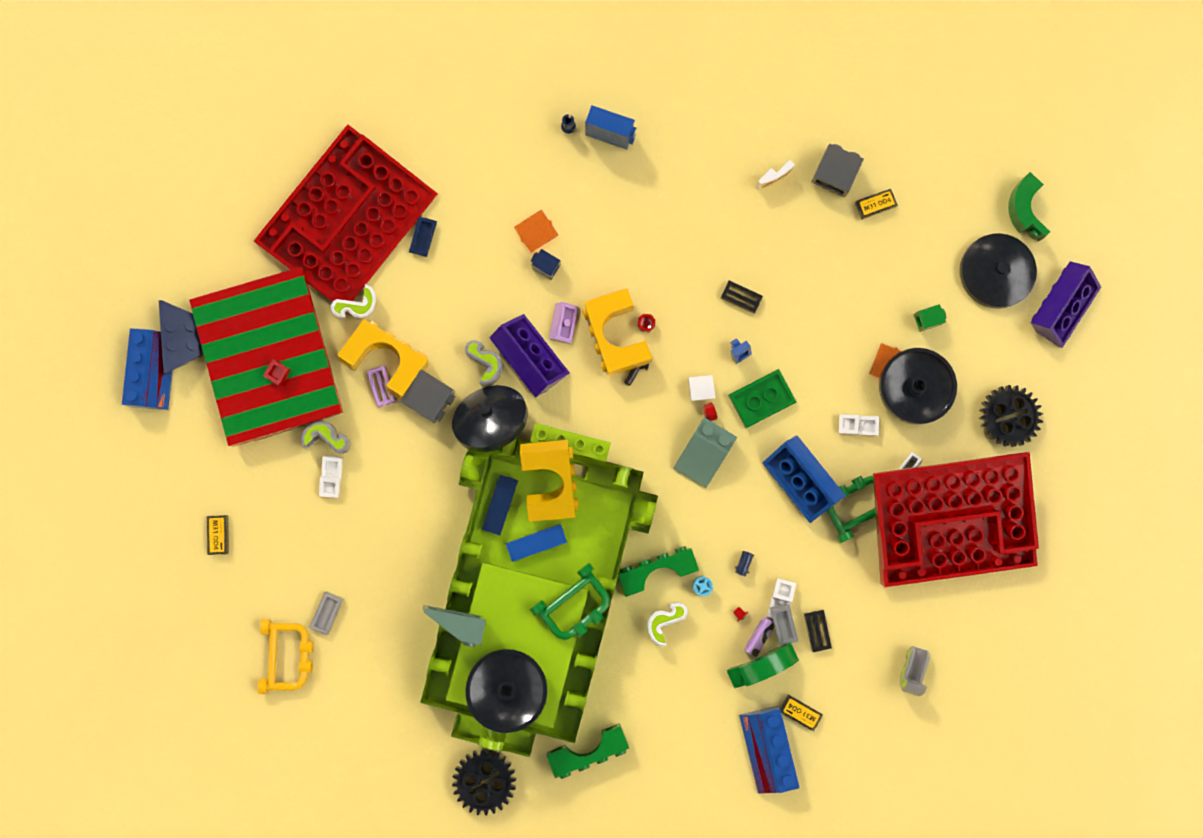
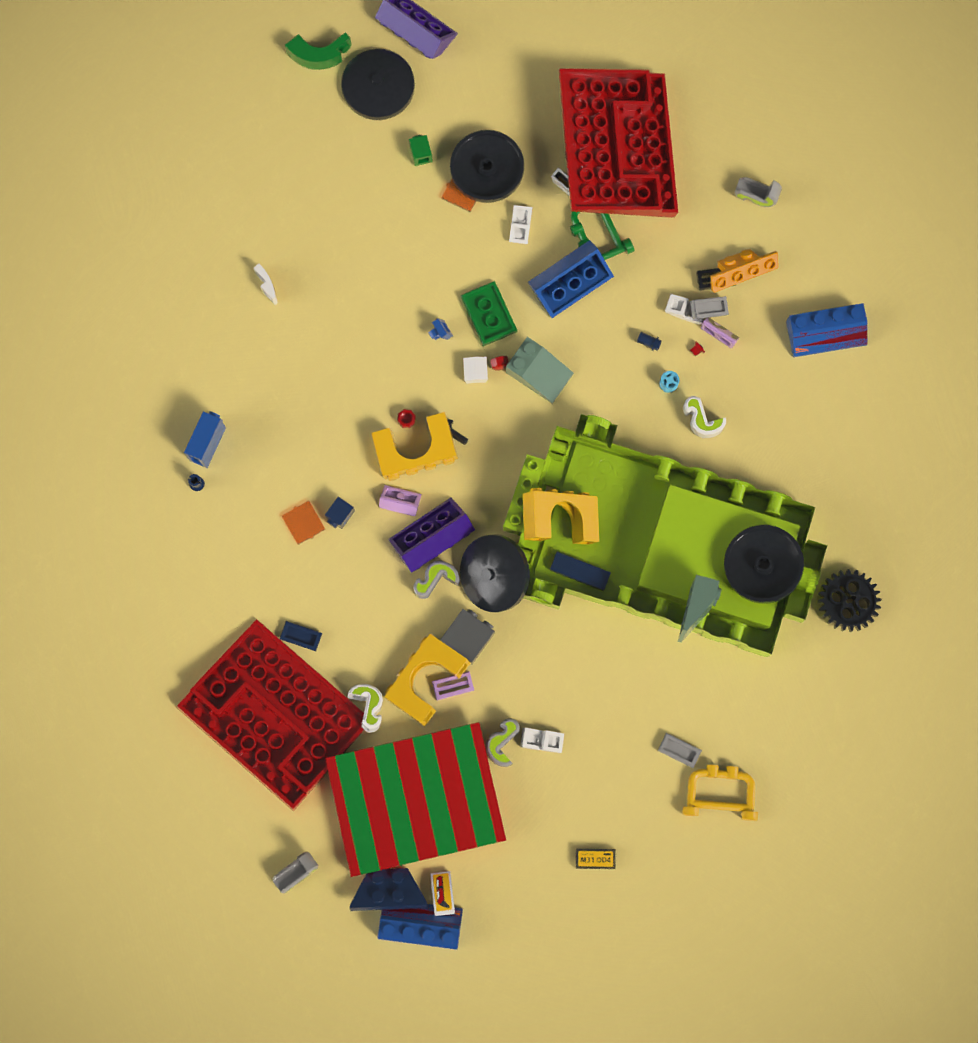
camera: 80 degrees left, 5 degrees down
(178, 388) = (442, 893): none -> slope
(196, 250) = (295, 872): none -> light grey animal
(277, 372) = (434, 784): red tile -> none
(536, 542) = (619, 538): blue tile -> none
(565, 761) = (815, 476): green arch -> none
(580, 628) = (695, 479): green bar -> none
(634, 579) = (645, 400): green arch -> none
(738, 303) = (379, 339): black tile -> none
(763, 667) = (749, 326): green arch -> none
(801, 712) = (793, 299): tile -> none
(829, 656) = (742, 268): none -> light orange bracket
(837, 169) = (266, 224): dark grey brick -> none
(876, 204) = (302, 191): tile -> none
(1016, 432) = (505, 88): black gear -> none

